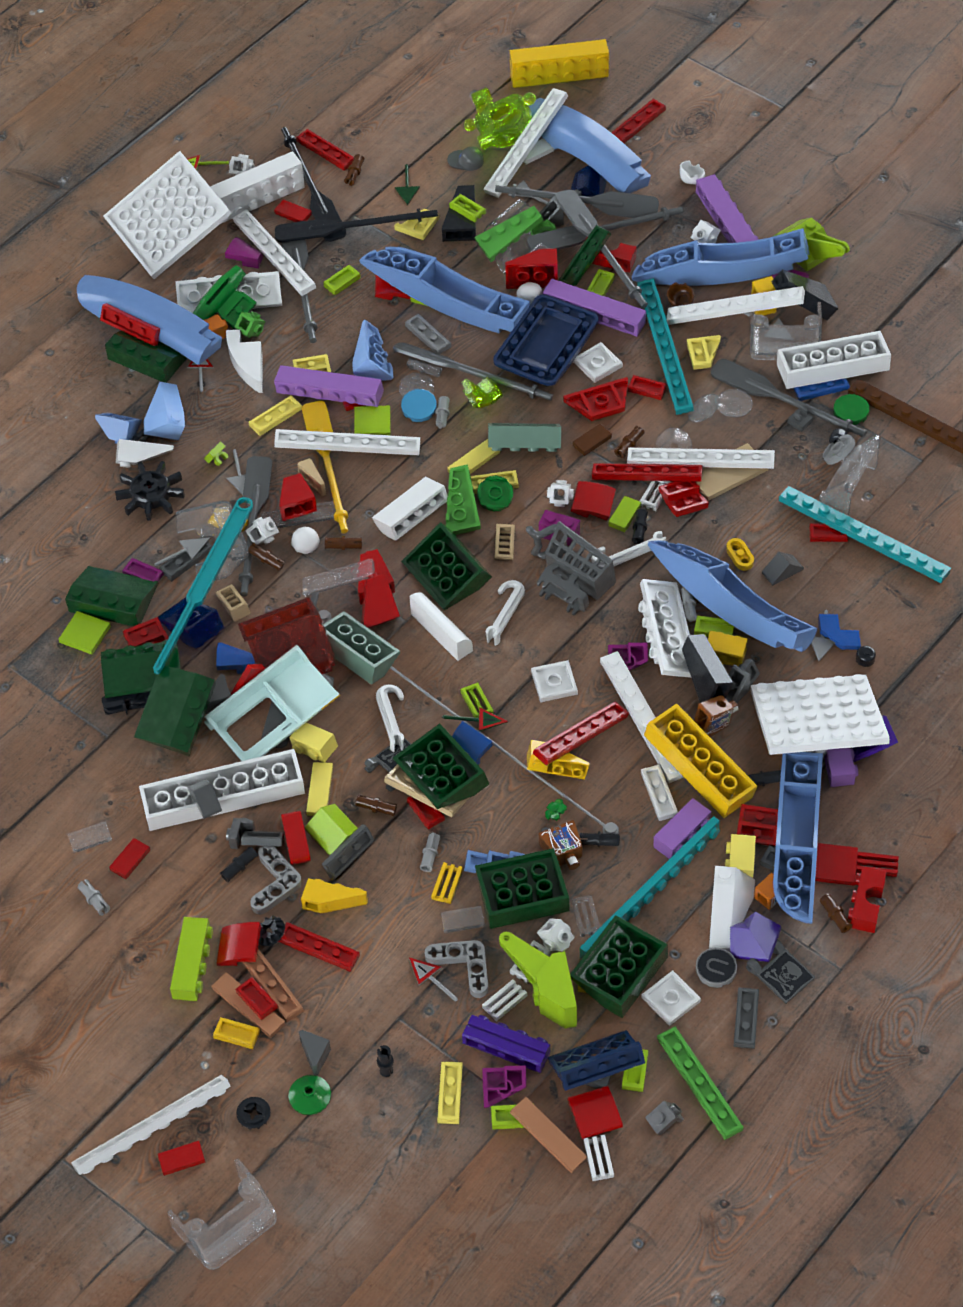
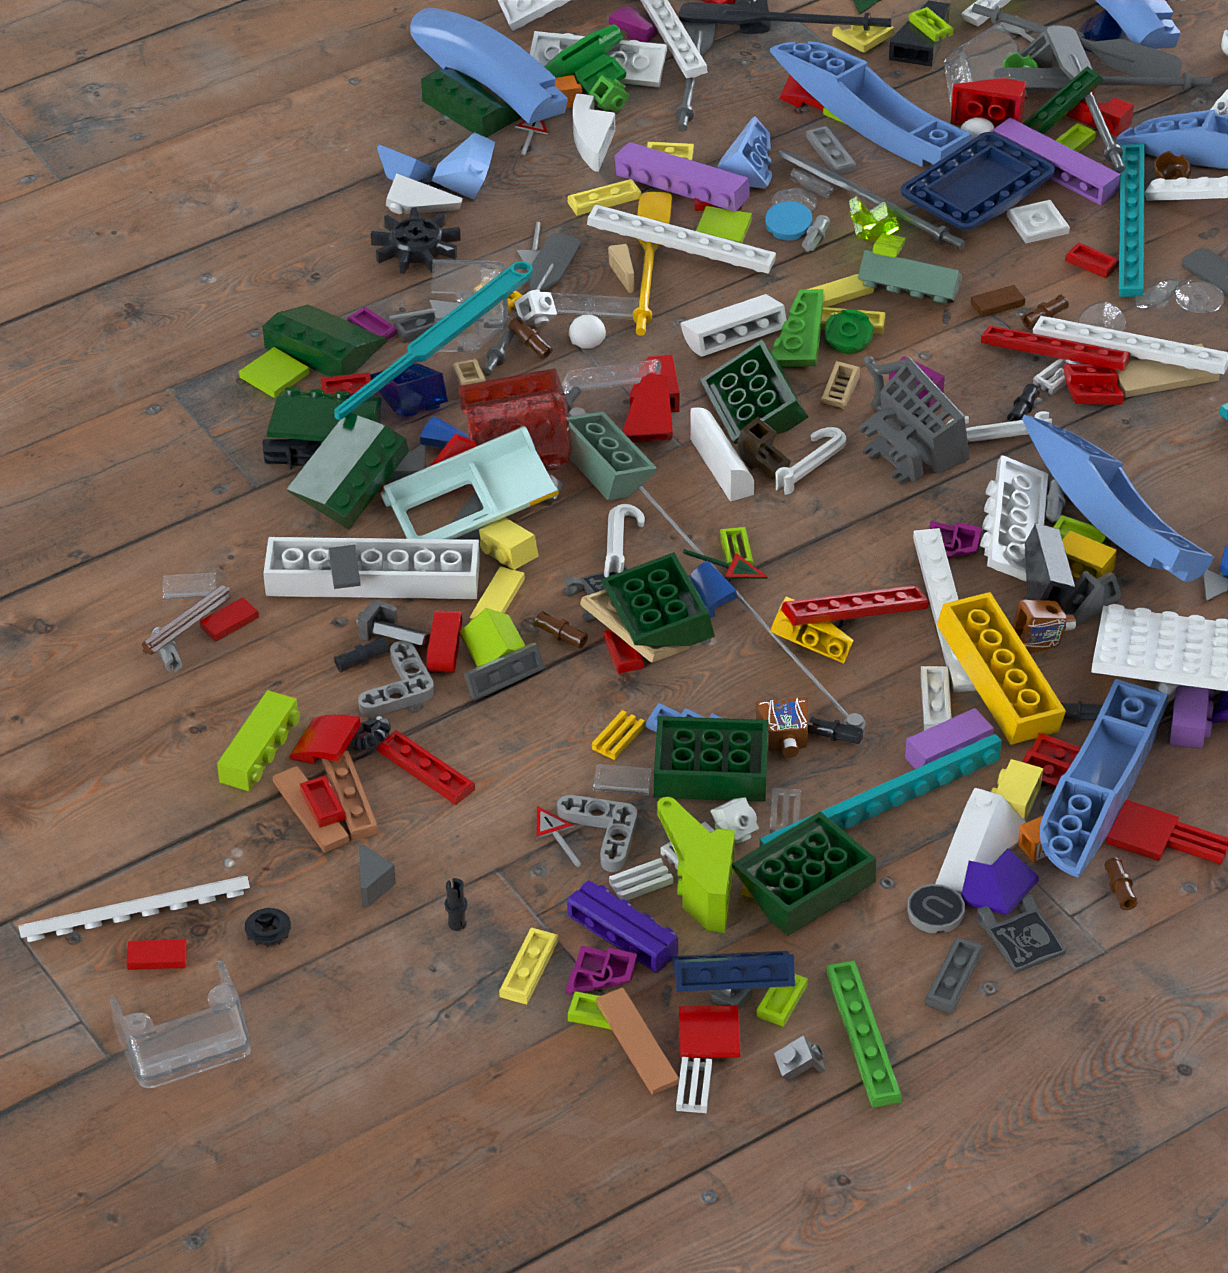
camera: 15 degrees right, 10 degrees down
(101, 870) = (186, 620): none -> axle
(130, 324) = (460, 62): red tile -> none
(215, 453) = (512, 218): lime tile -> none
(236, 1033) = (283, 836): yellow tile -> none
(296, 498) = (591, 282): red slope -> none
(309, 1103) = (348, 926): green dish -> none
(329, 897) = (460, 714): yellow slope -> none
(342, 280) = (745, 74): lime tile -> none
(343, 543) = (633, 344): reddish brown pin -> none
(430, 852) = (609, 696): light grey axle -> none
(466, 615) = (757, 448): none -> dark brown brick
(502, 235) = (976, 58): bright green wing -> none
(502, 414) = (888, 245): none -> lime tile
(554, 681) = (845, 548): white tile -> none
(555, 498) = (924, 342): white brick -> none
(555, 809) = (790, 686): green plant -> none
(593, 499) = (973, 363): red slope -> none
(600, 400) = (1024, 260): red wing -> none
(624, 514) = (1008, 388): lime tile -> none
(671, 998) = (862, 929): white tile -> none
(703, 351) = (1181, 234): light yellow wing -> none
(742, 557) = (1144, 461): yellow plate -> none
(781, 568) = (1195, 486): dark grey slope -> none
(864, 913) = (1177, 860): red arch -> none

